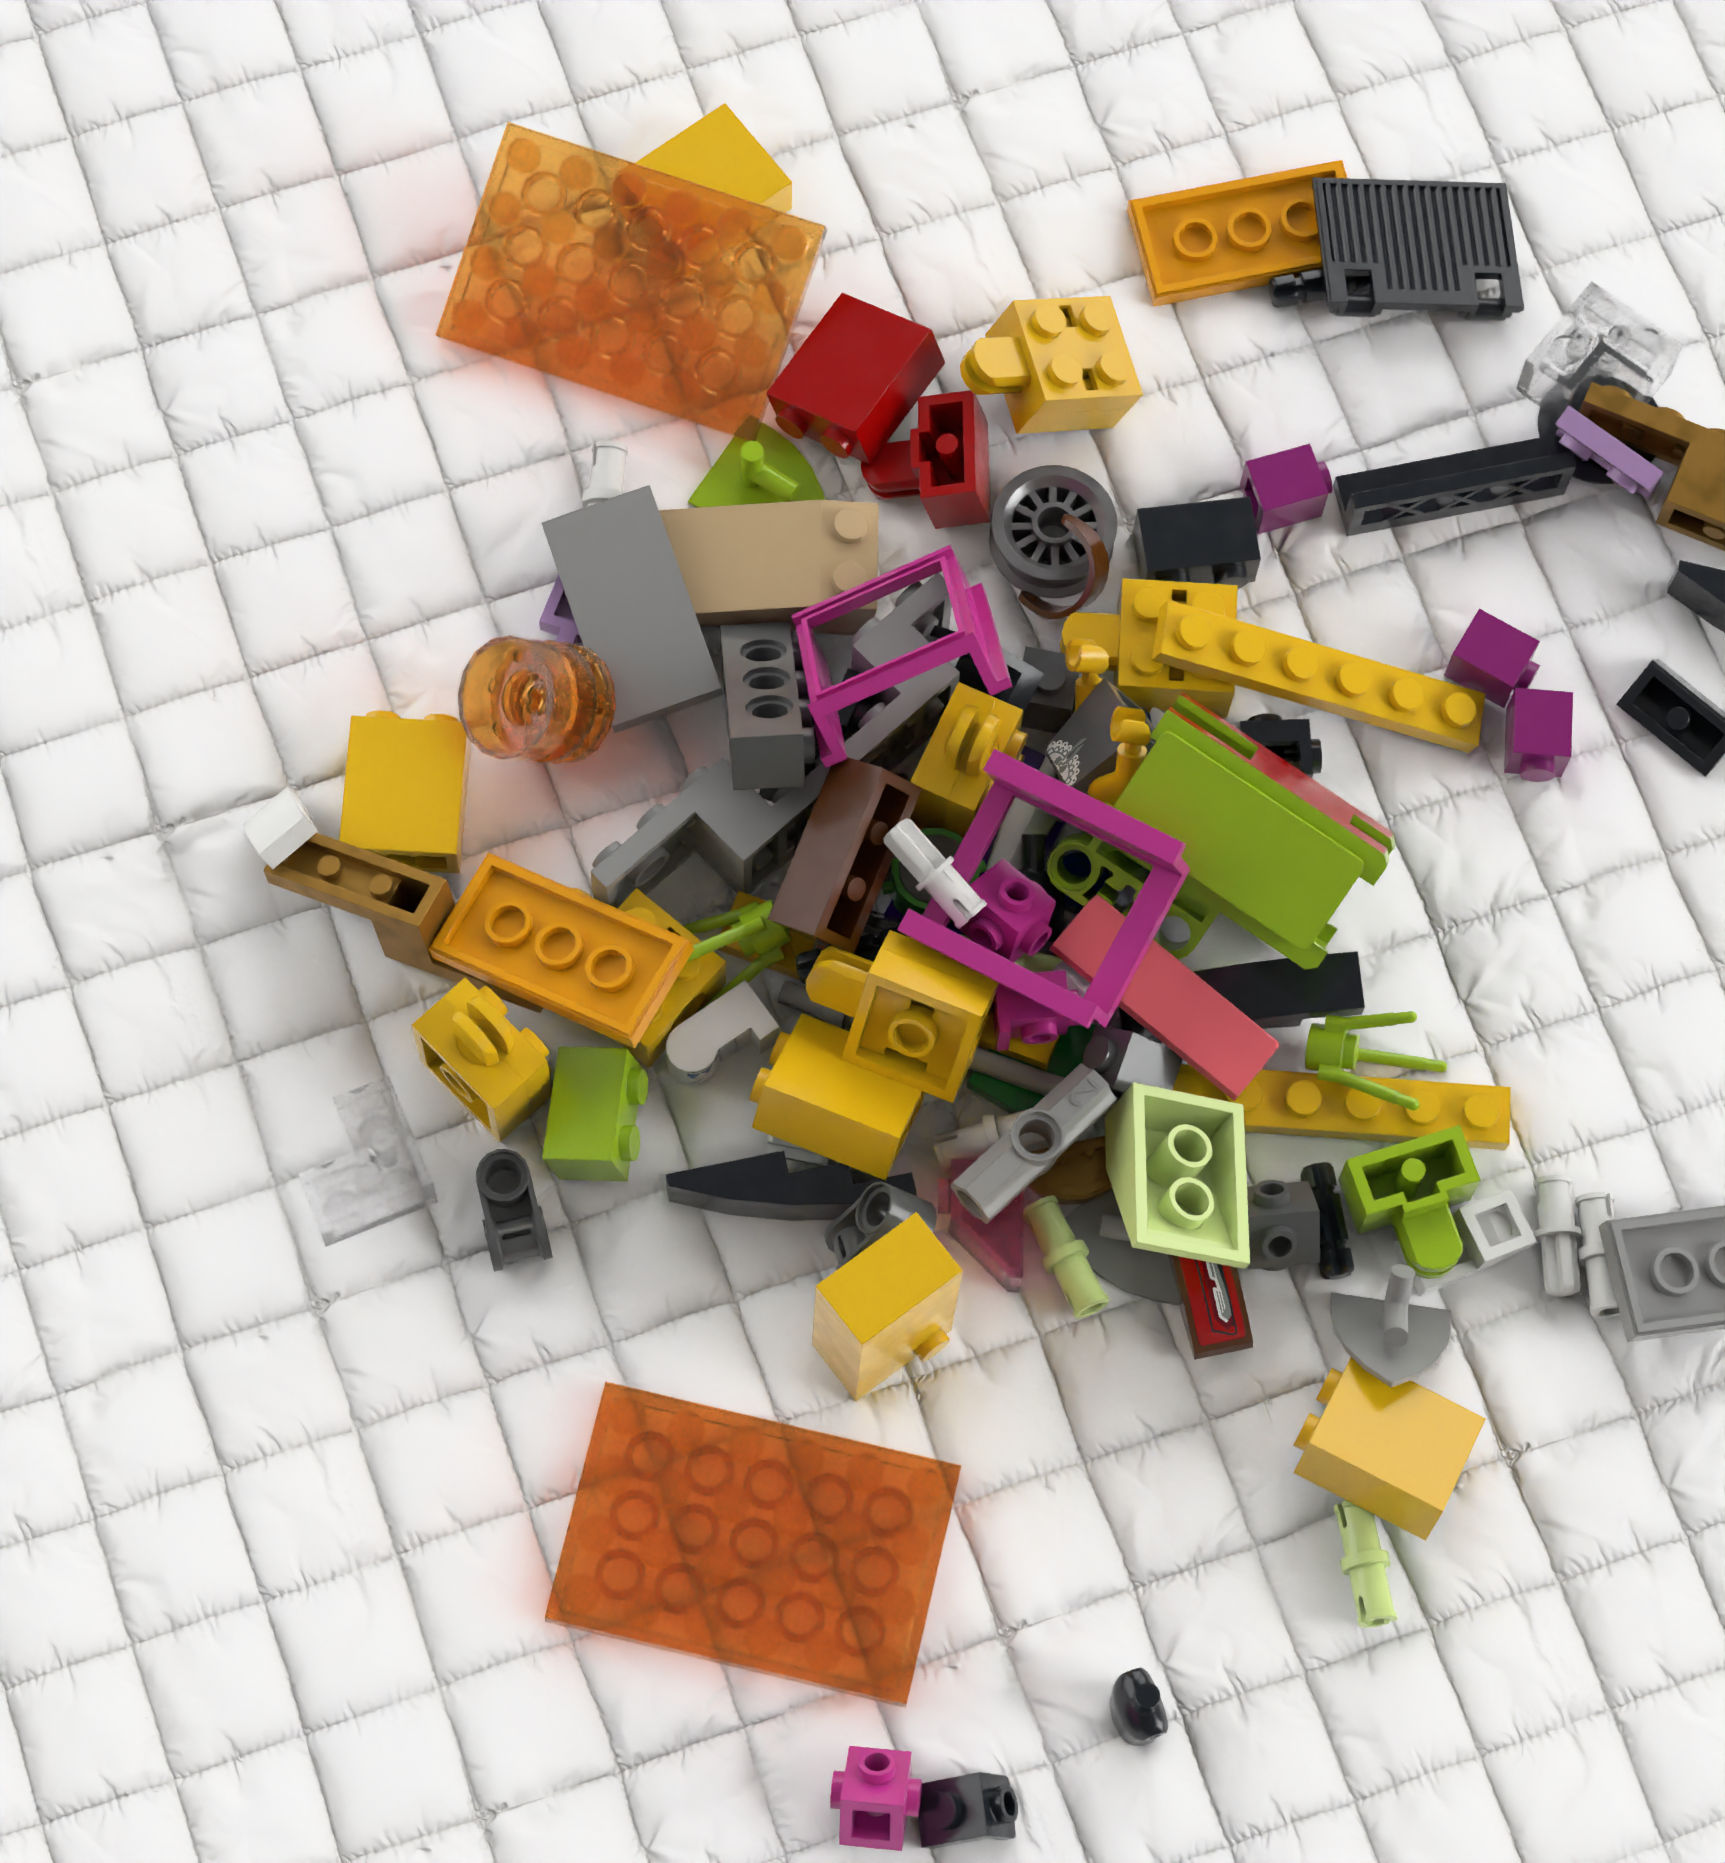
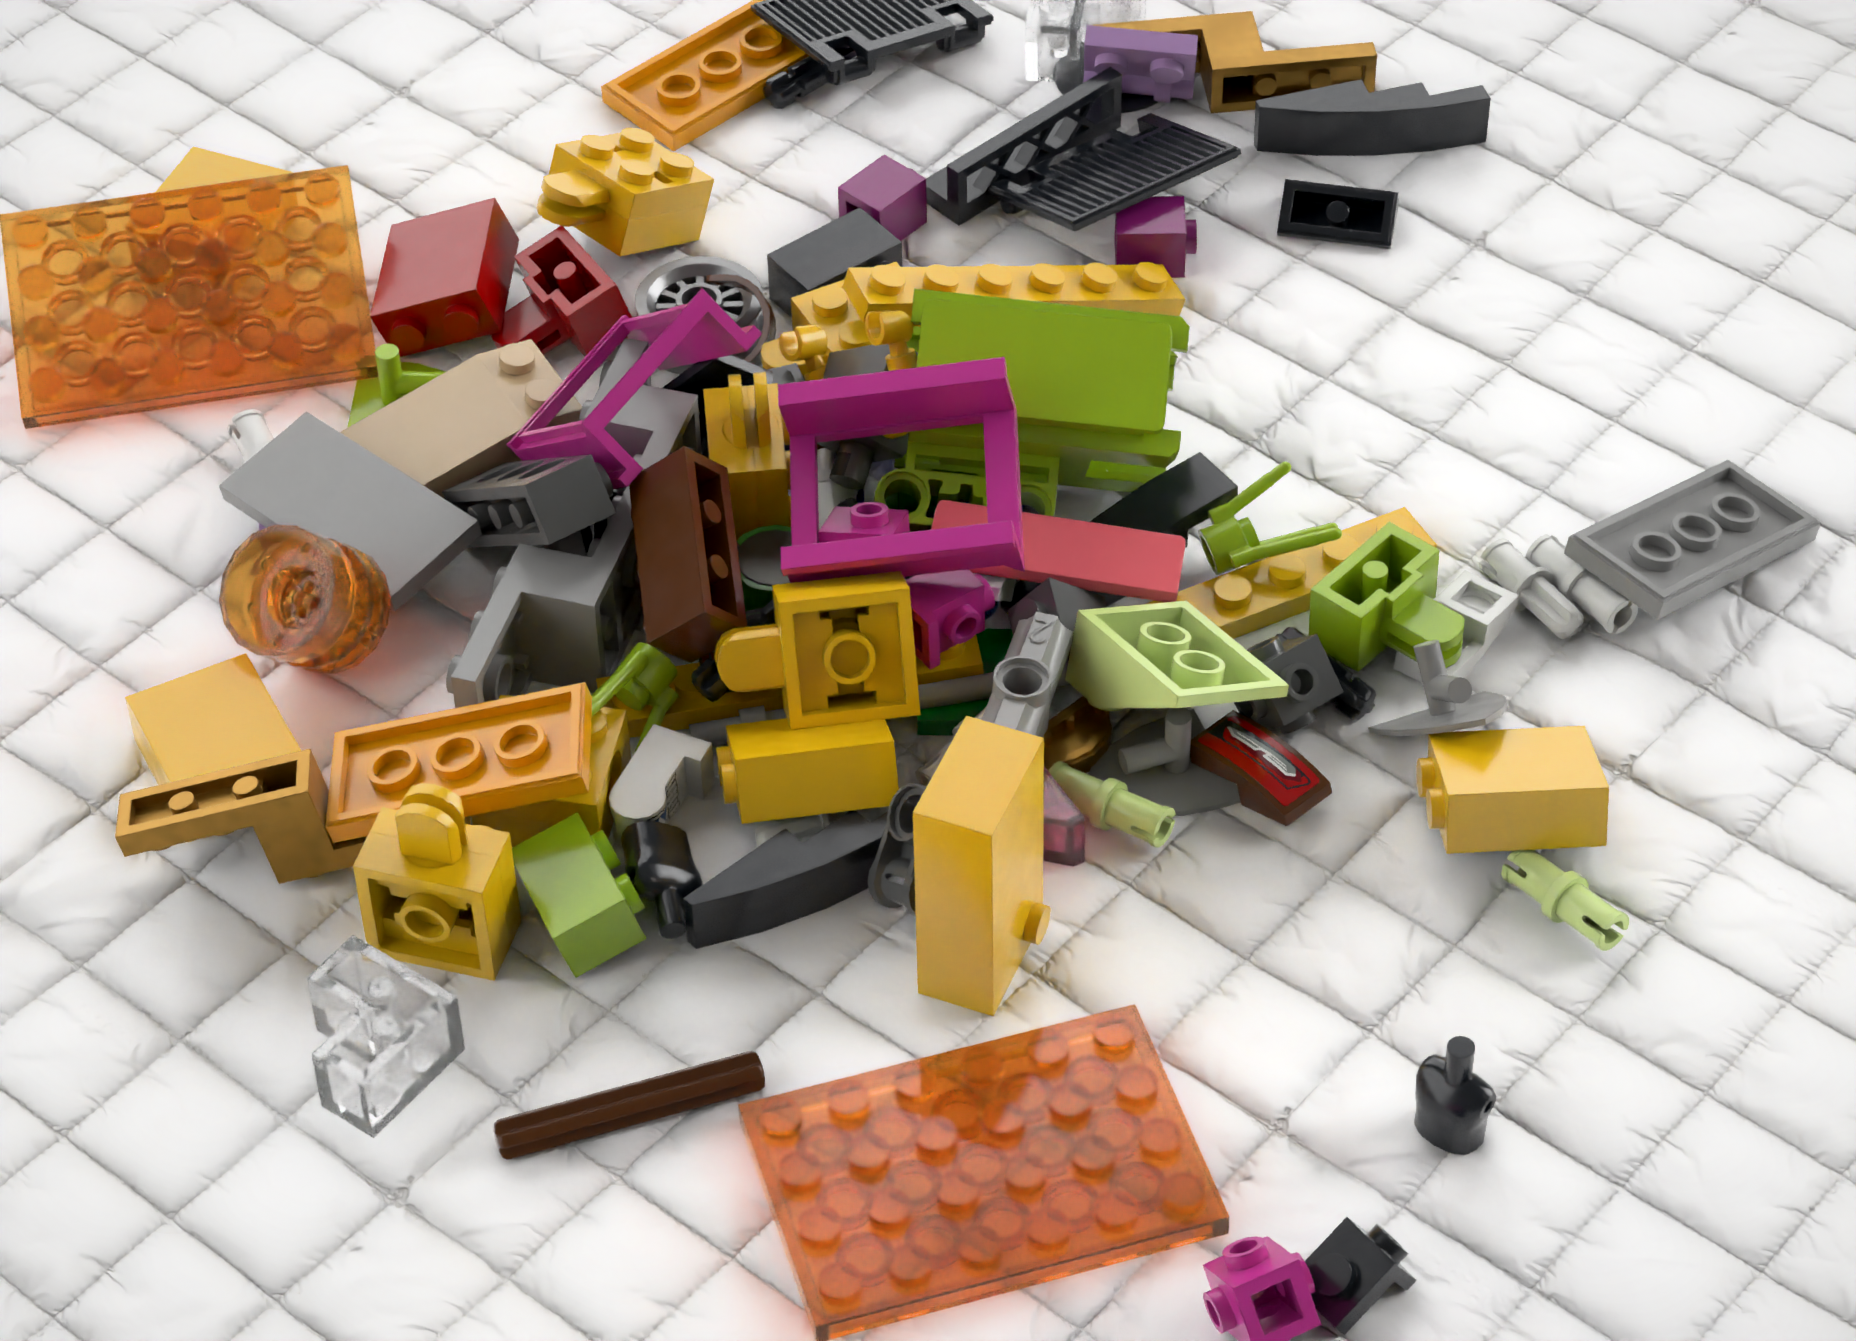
camera: 25 degrees left, 25 degrees down
(280, 827) = (108, 806): white slope -> none
(512, 1220) = (546, 1010): dark grey piece -> none
(528, 1330) = (629, 1105): none -> reddish brown axle
(674, 1125) = (661, 870): none -> black piece
(933, 872) = (779, 517): white axle -> none
(1502, 573) = (1113, 172): none -> black window
(1538, 733) = (1229, 266): magenta brick -> none

